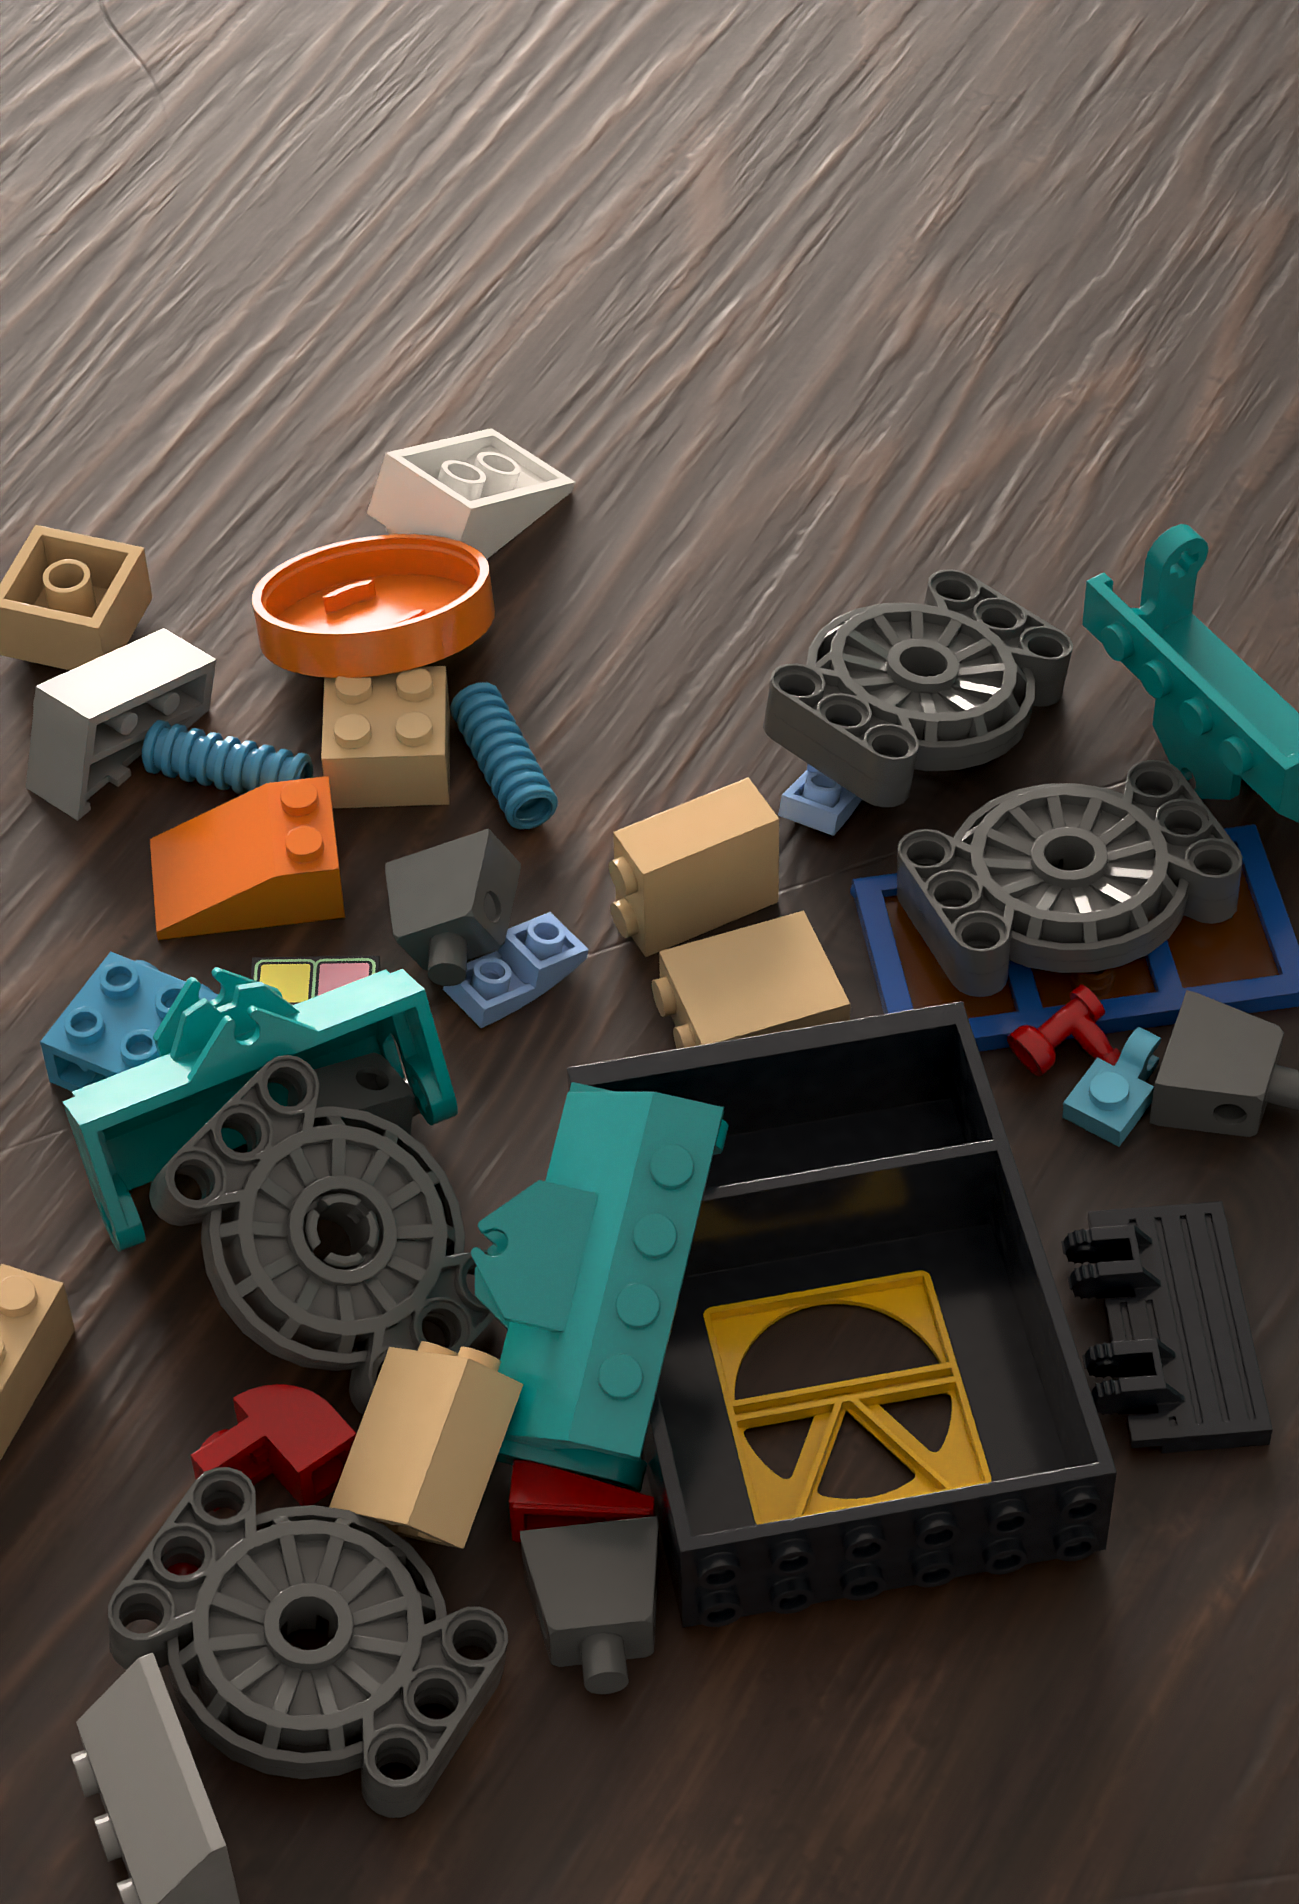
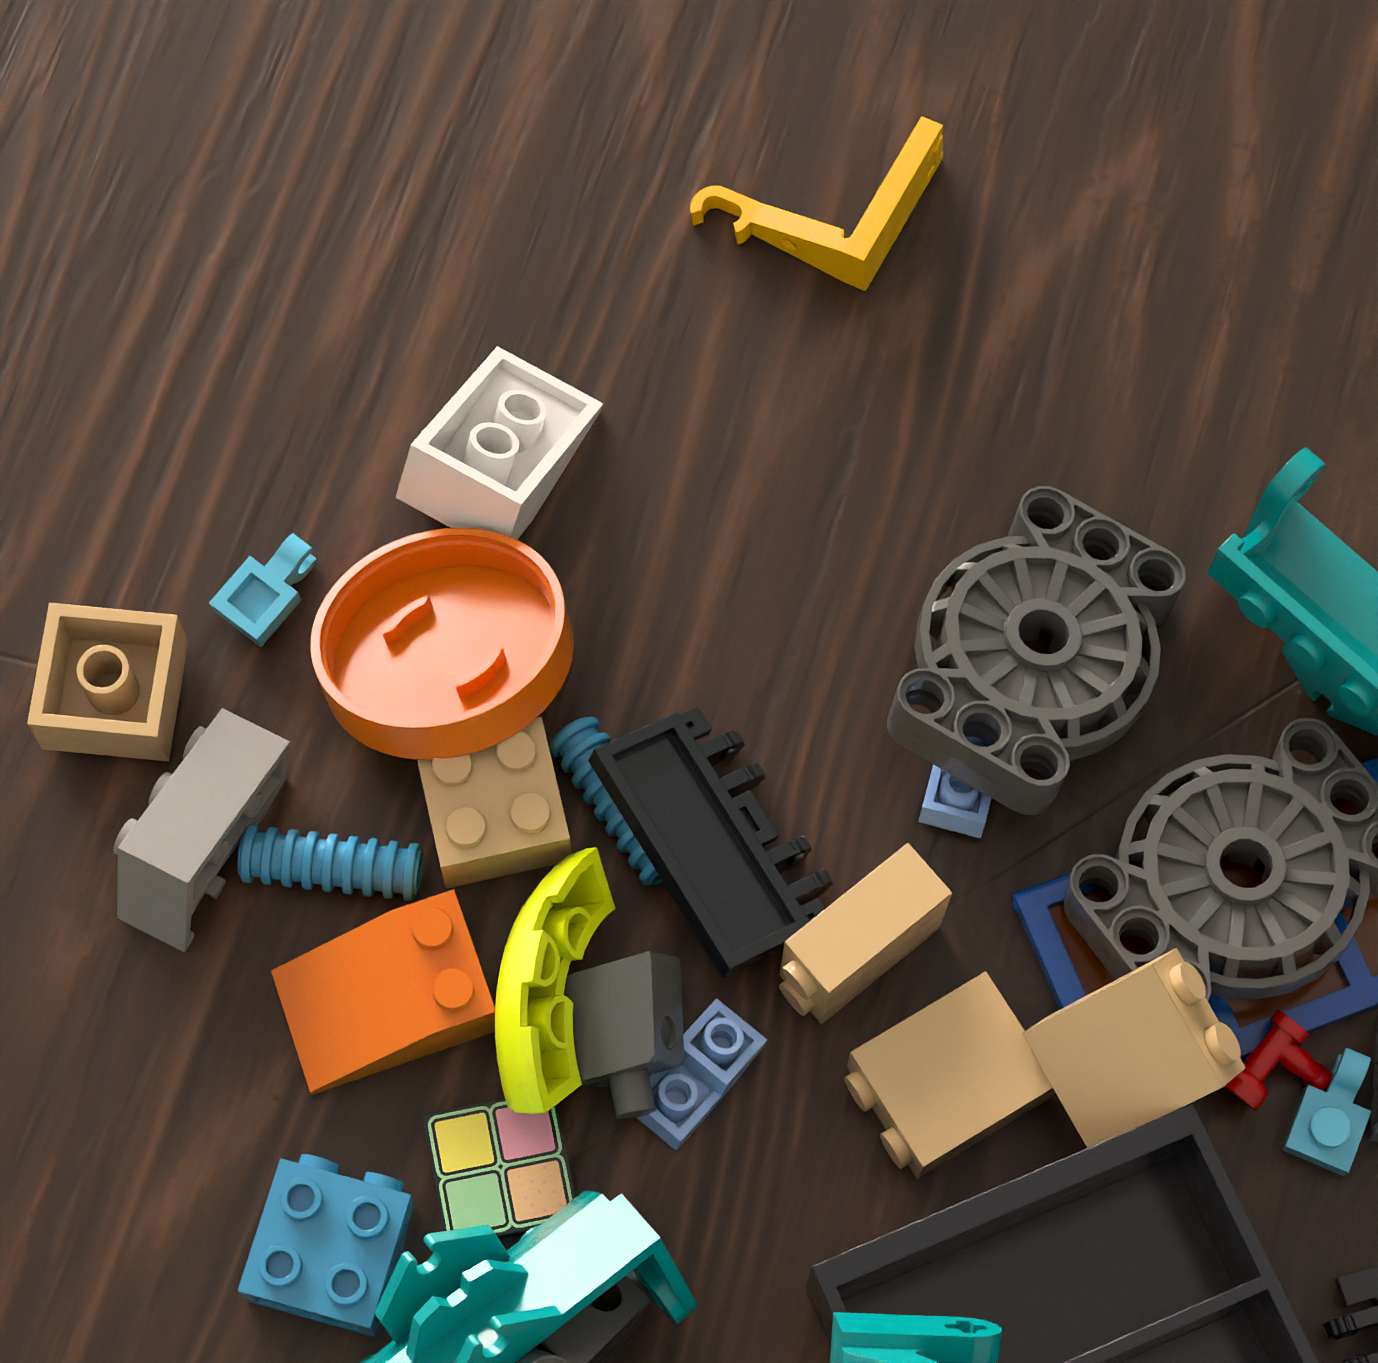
camera: 15 degrees left, 20 degrees up
(230, 569) = (262, 596): none -> medium azure plate
(373, 862) = (530, 1008): none -> neon yellow brick
(569, 773) = (710, 838): none -> black hinge
(850, 390) = (822, 245): none -> yellow hinge
(927, 952) = (1135, 1049): none -> tan brick

